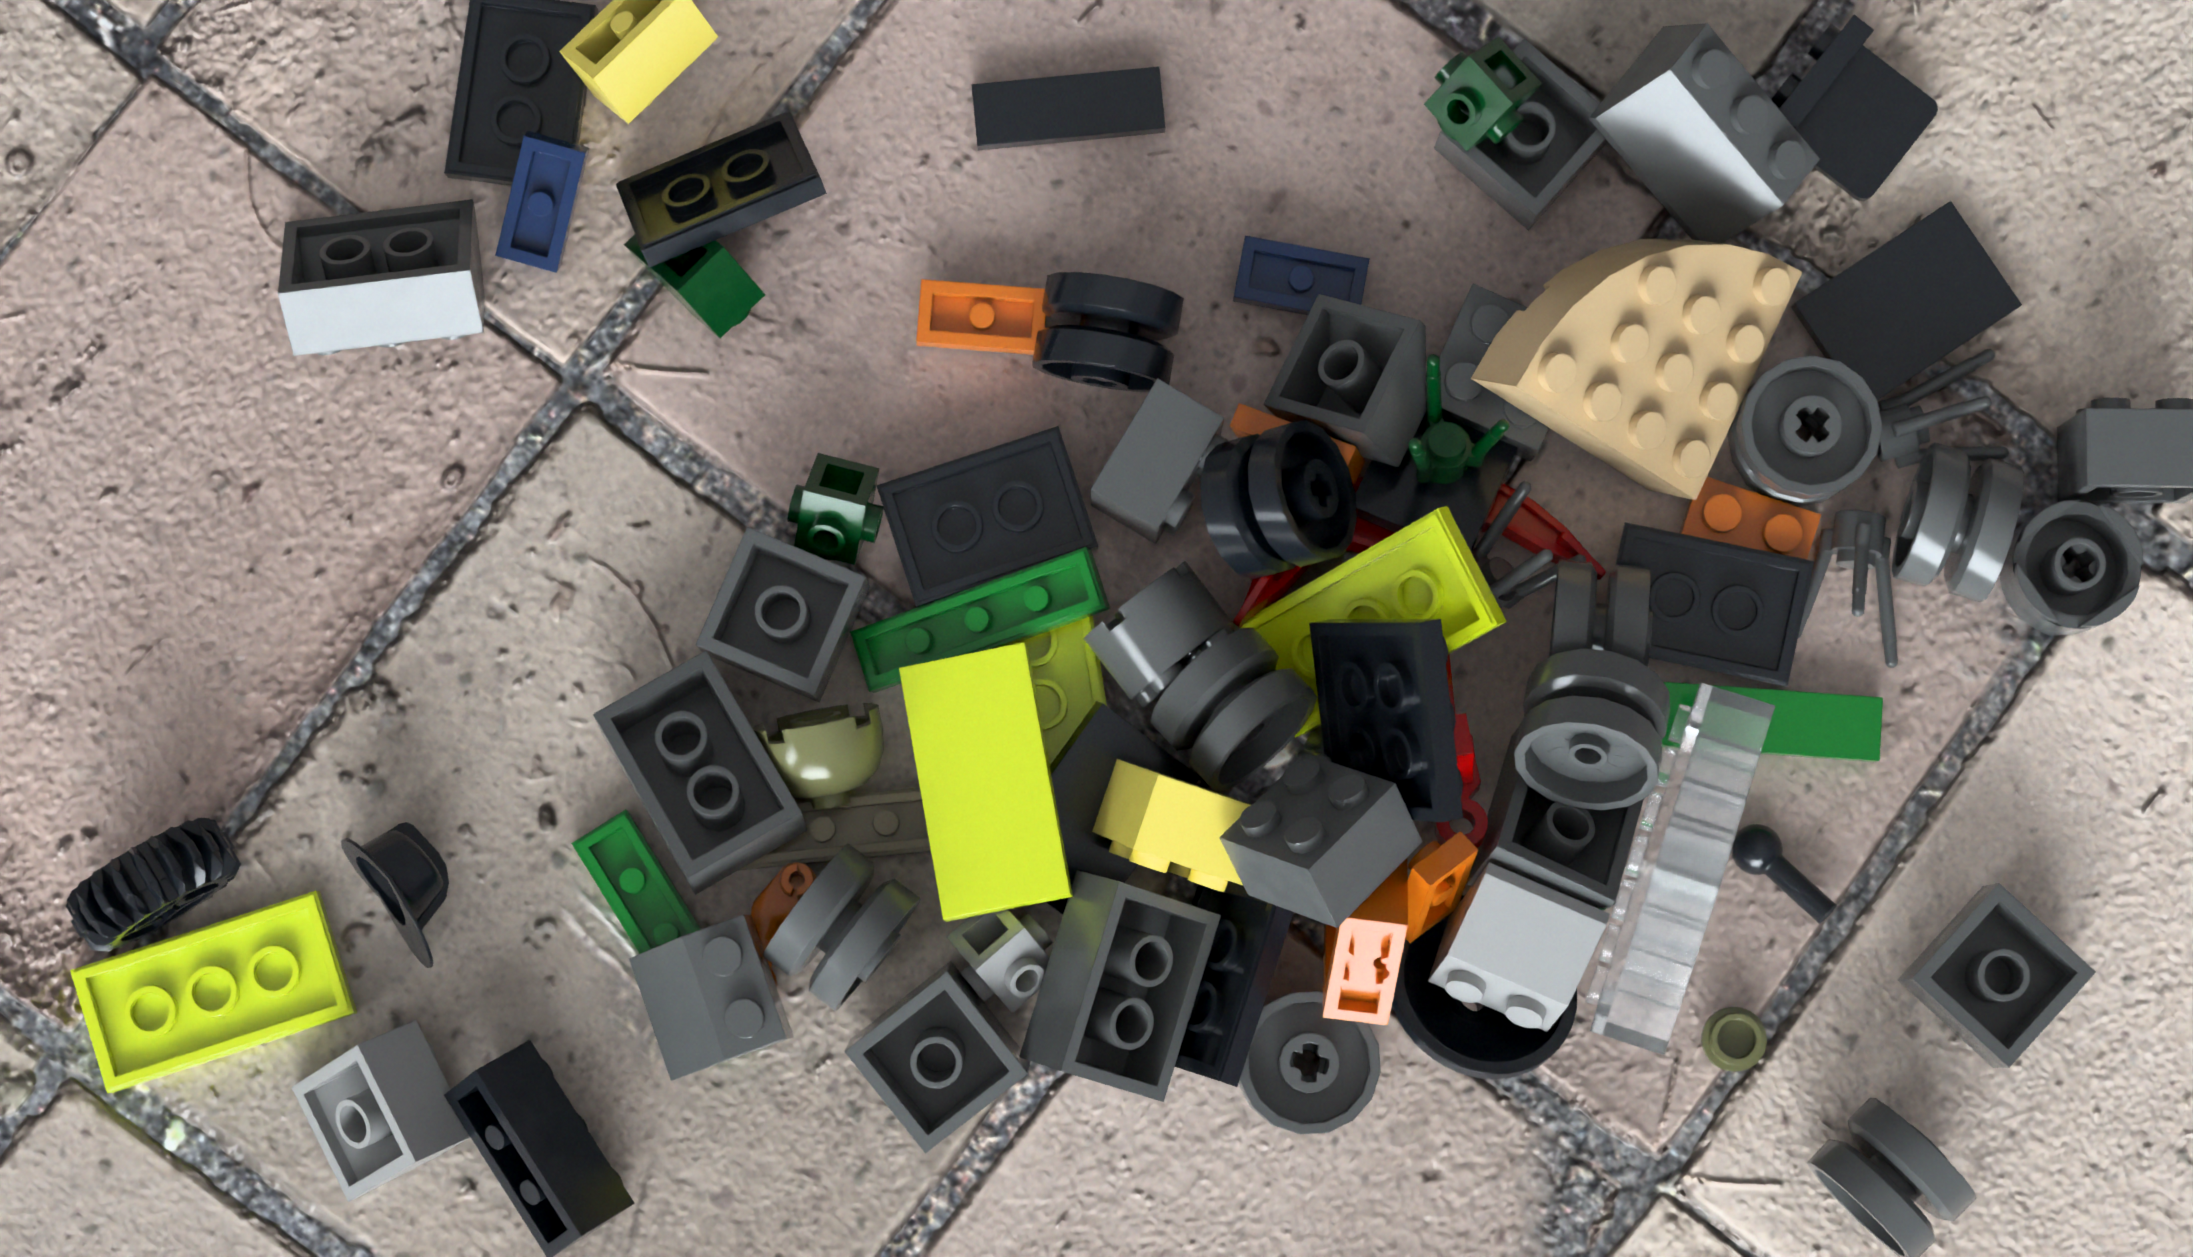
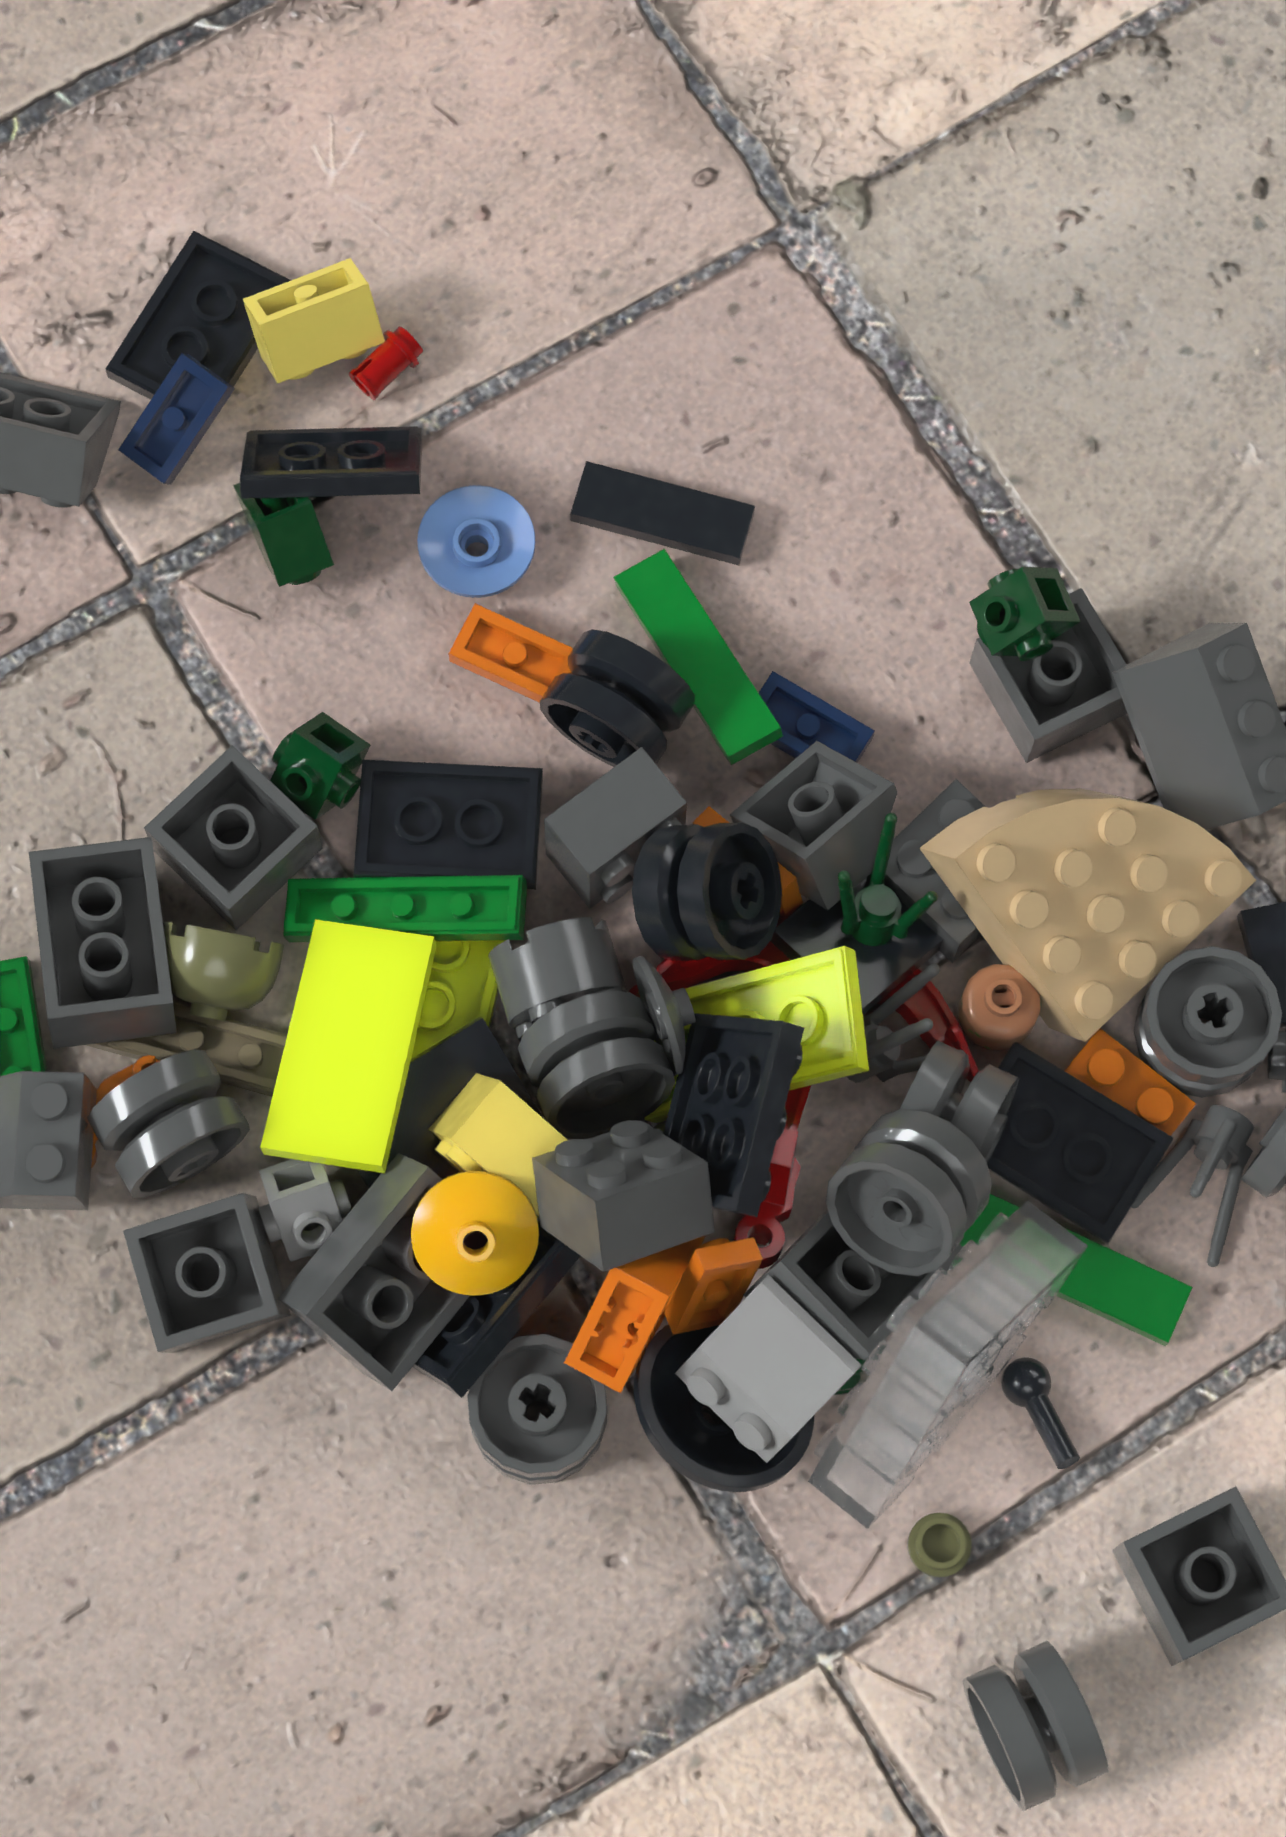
camera: 20 degrees right, 10 degrees down
(727, 56) = (386, 362): none -> red pin
(890, 182) = (469, 517): none -> medium blue dish
(1165, 248) = (699, 655): none -> green tile
(1173, 905) = (469, 1204): none -> yellow dish
(1286, 633) = (667, 1011): none -> dark grey dish
(1581, 504) = (985, 1011): none -> nougat head

